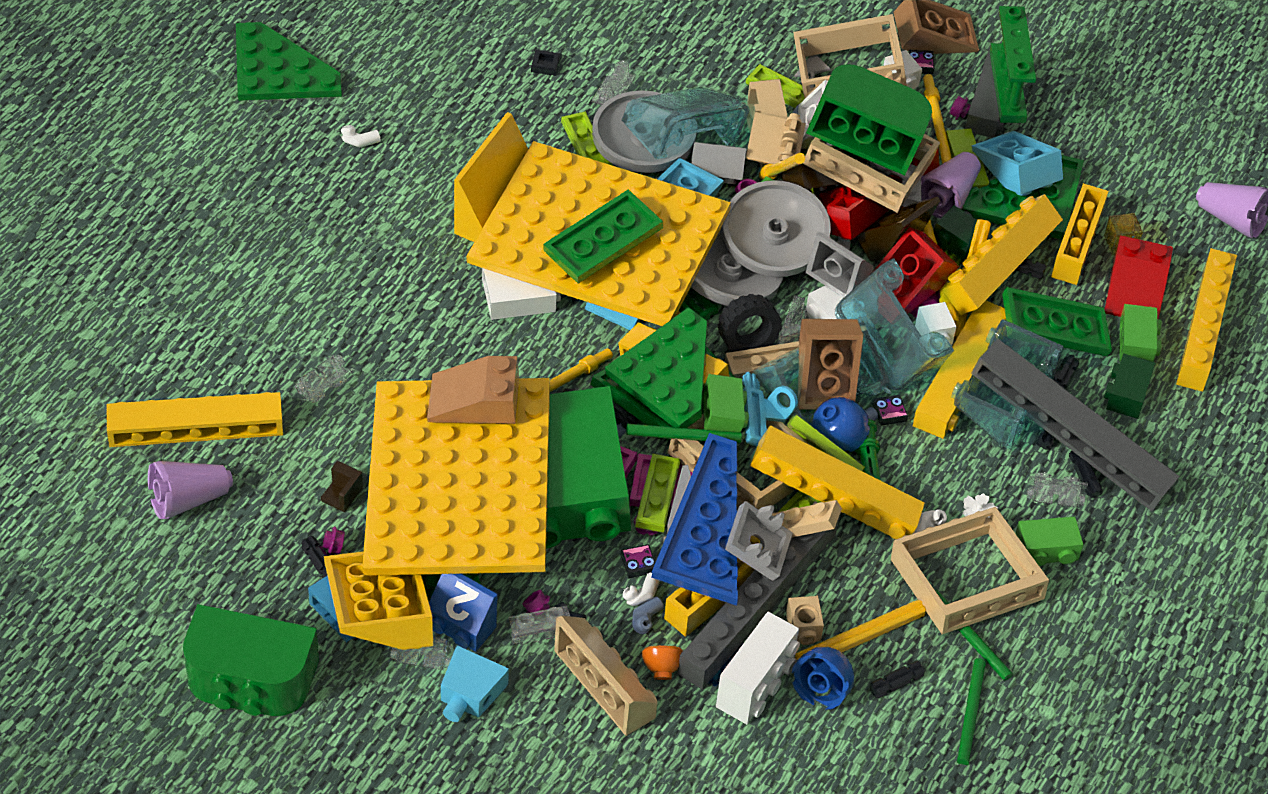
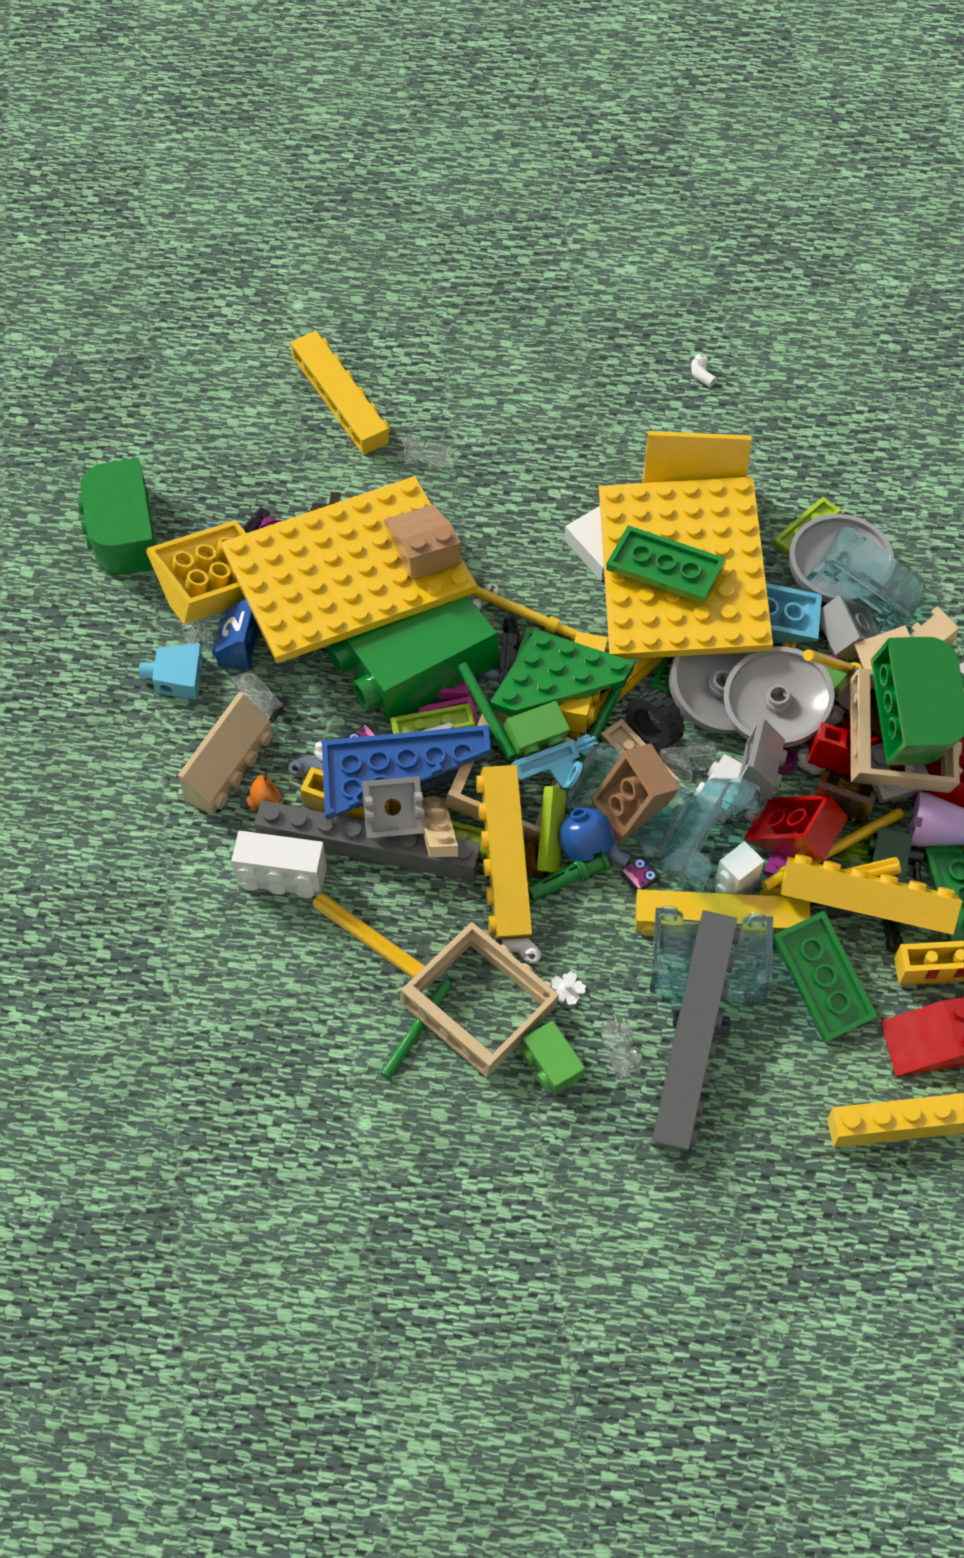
camera: 70 degrees right, 10 degrees up
(185, 485) = (267, 411): lavender cone -> none
(278, 68) = (742, 288): green plate -> none
(536, 602) = (279, 685): magenta plate -> none
(545, 62) = (882, 461): black tile -> none
(615, 83) = (890, 520): clear hinge -> none
(806, 610) = (362, 876): tan brick -> none
(820, 671) = (304, 921): blue cylinder -> none
(897, 679) = (336, 983): black axle -> none
(971, 711) = (331, 1057): green bar -> none
(1066, 371) = (768, 1009): black axle -> none
(1086, 474) = (654, 1071): black axle -> none
(1130, 385) = (789, 1071): dark green brick -> none
(1139, 332) = (862, 1060): bright green brick -> none

